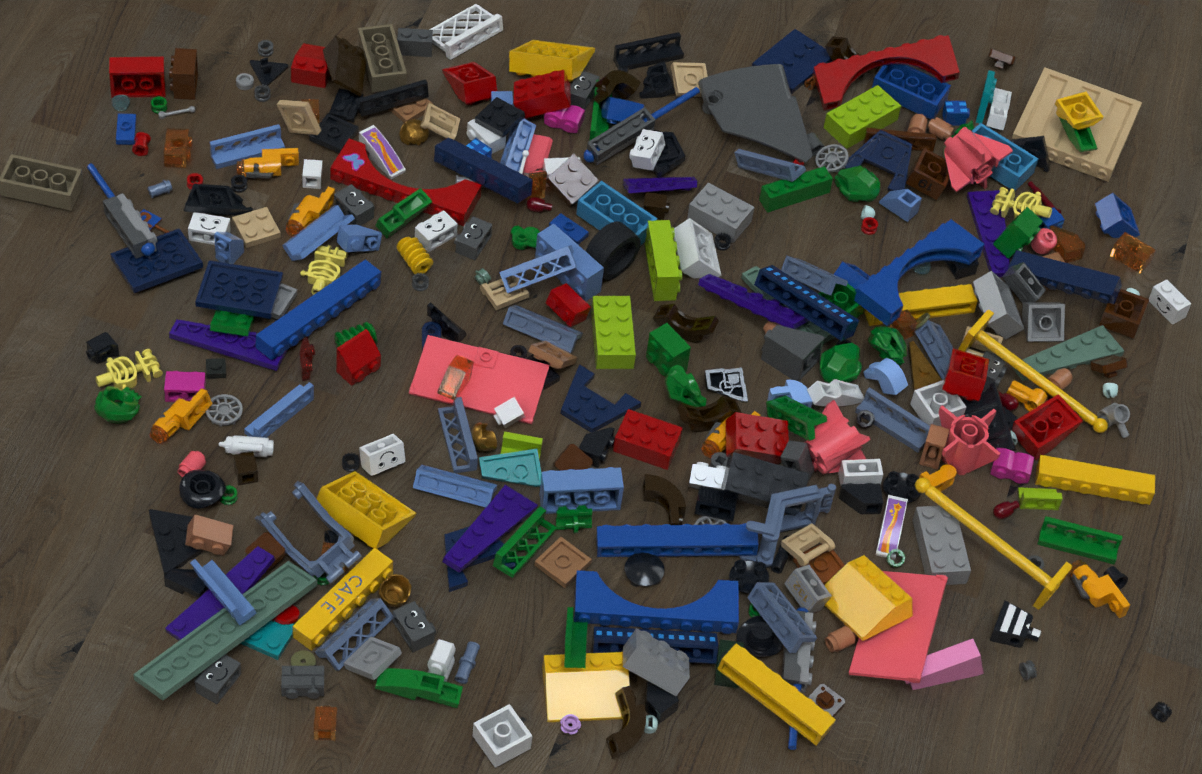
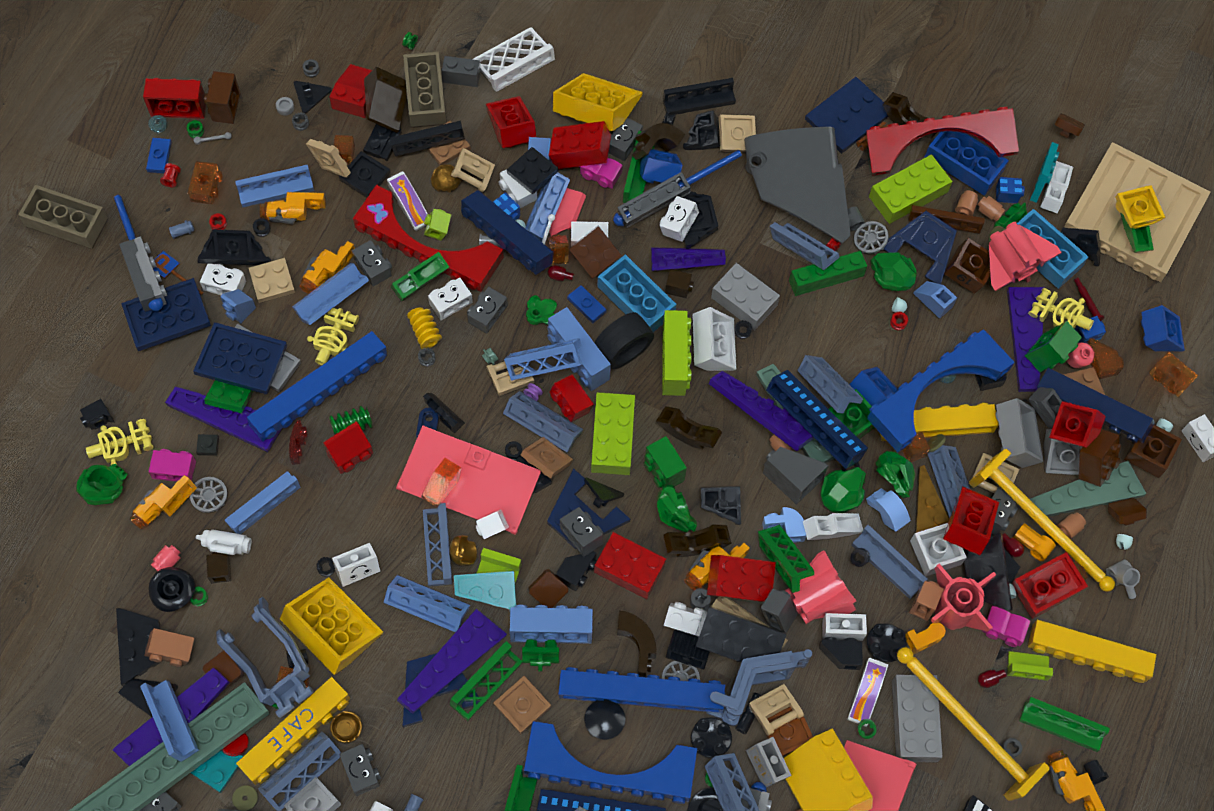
camera: 10 degrees right, 15 degrees up
(312, 174) = (335, 222): white brick -> none
(358, 238) = (369, 303): medium blue slope -> none
(359, 20) = (409, 40): none -> green bush
(413, 169) = (437, 224): none -> lime brick
(529, 302) = (533, 391): none -> medium lavender bush
(597, 410) = (581, 531): none -> dark grey brick
(611, 387) = (602, 492): none -> black piece
(1051, 287) = (1077, 424): none -> red slope
(1075, 318) = (1099, 458): none -> reddish brown brick

